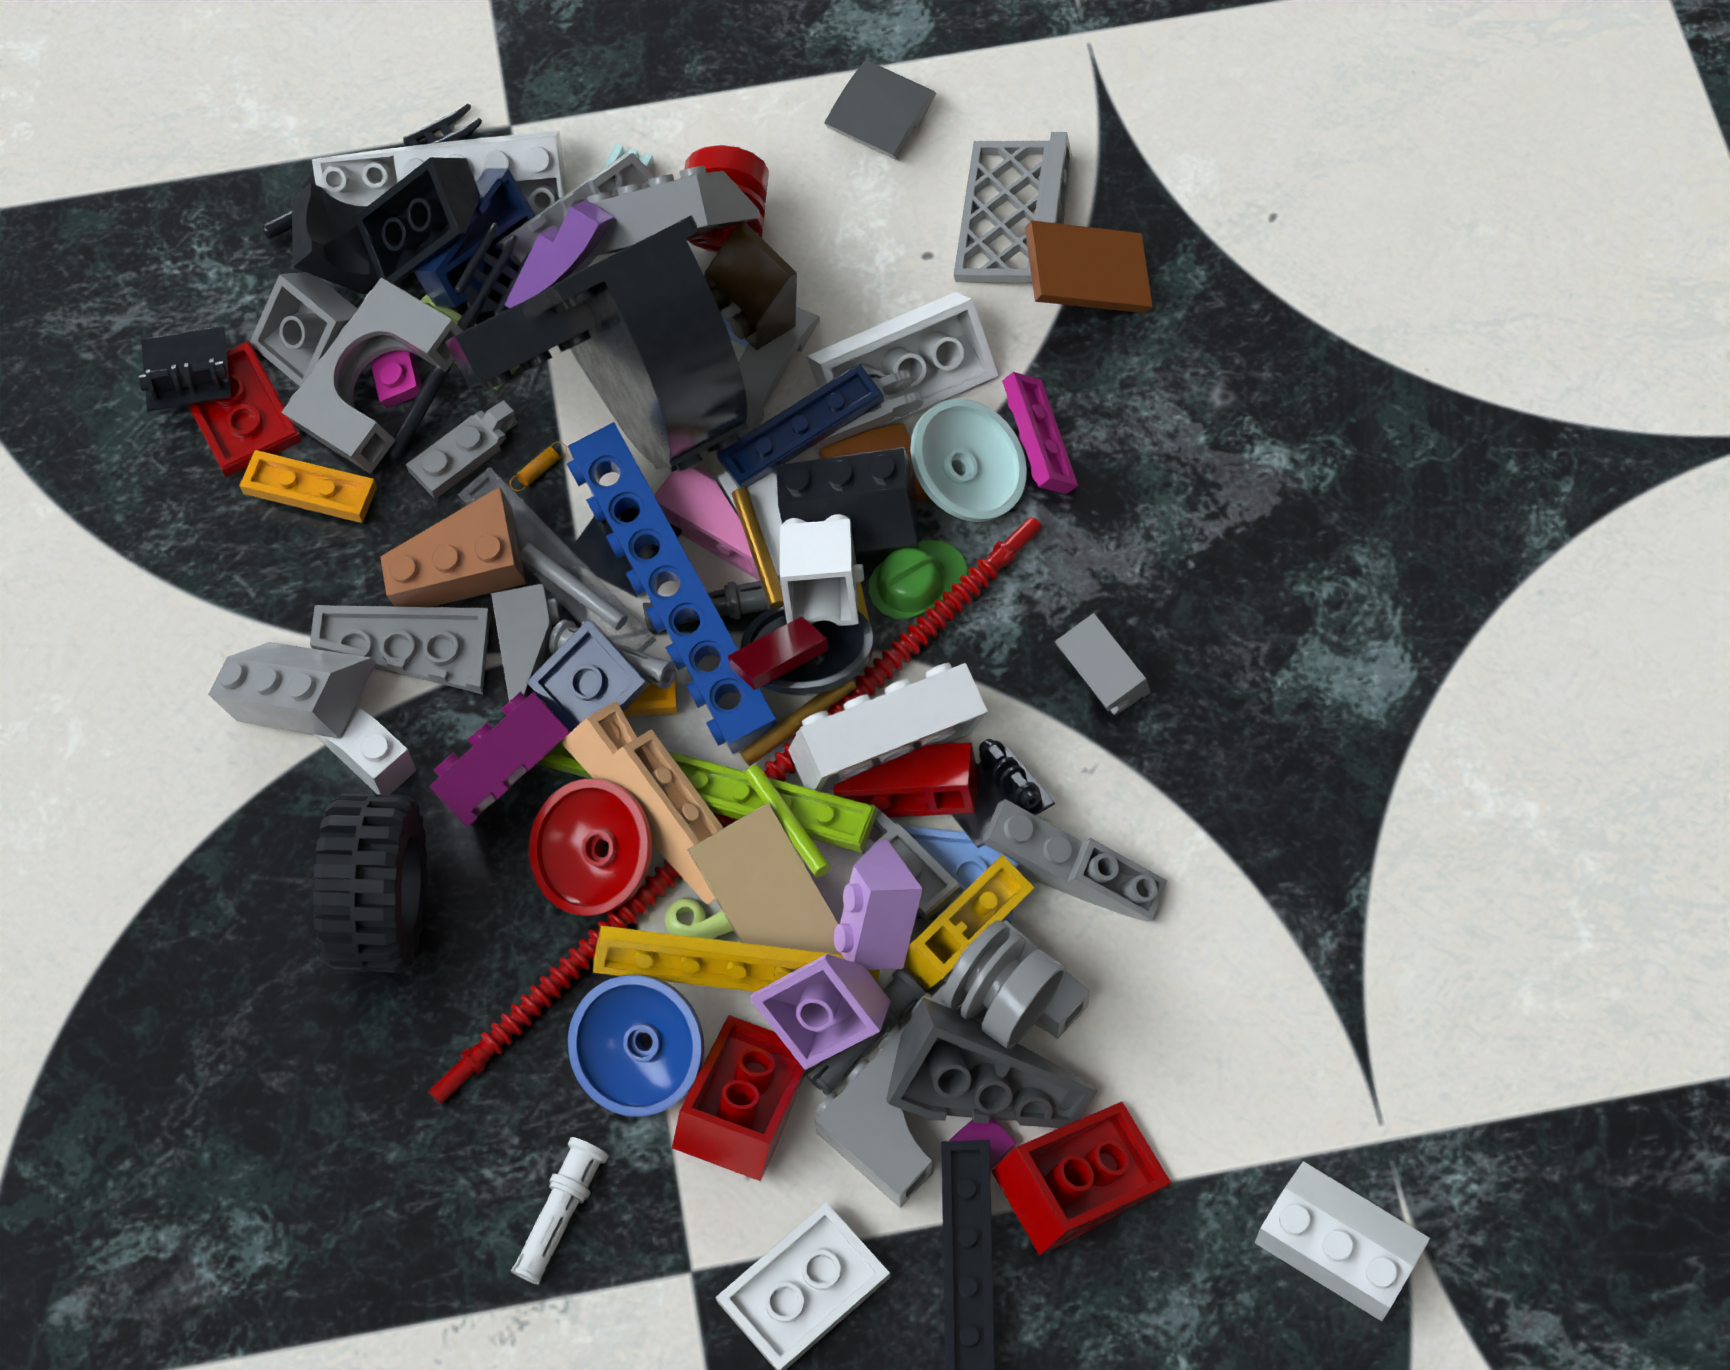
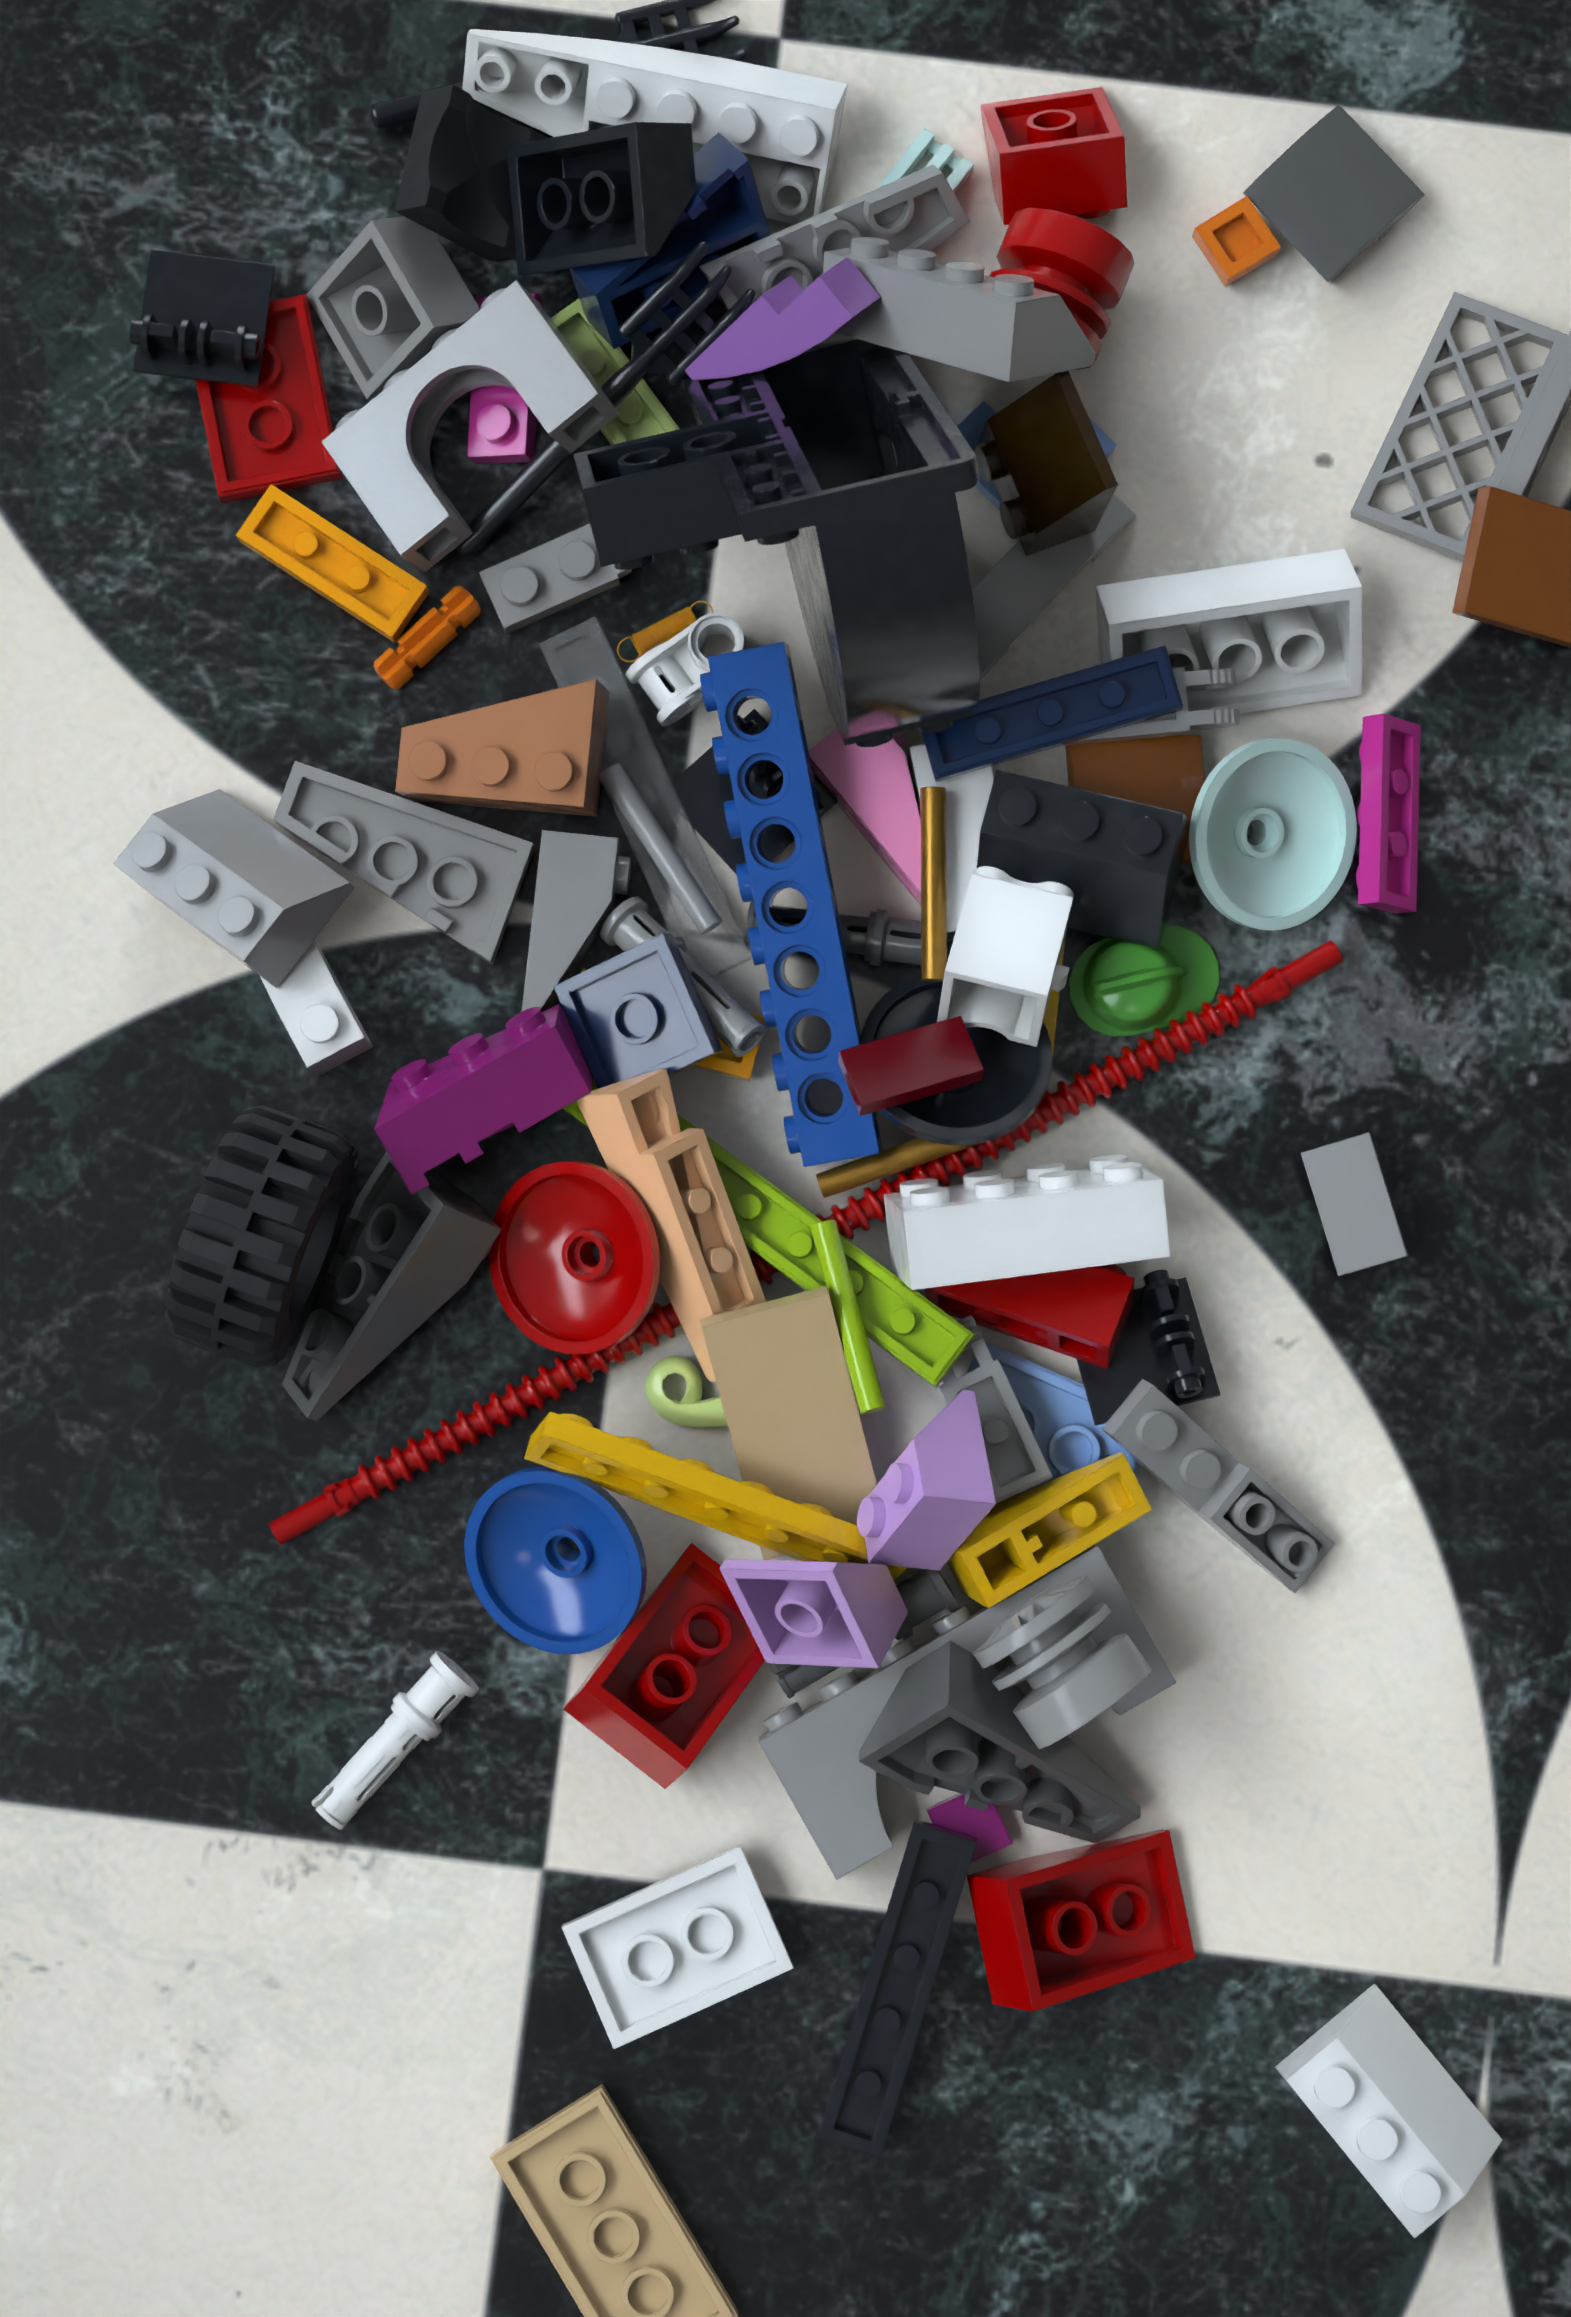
camera: 15 degrees right, 20 degrees up
(382, 513) = (427, 637): none -> orange axle
(477, 882) = (394, 1275): none -> dark grey wedge
(552, 482) = (681, 666): none -> white piece
(699, 126) = (1056, 154): none -> red slope
(829, 150) = (1236, 241): none -> orange plate

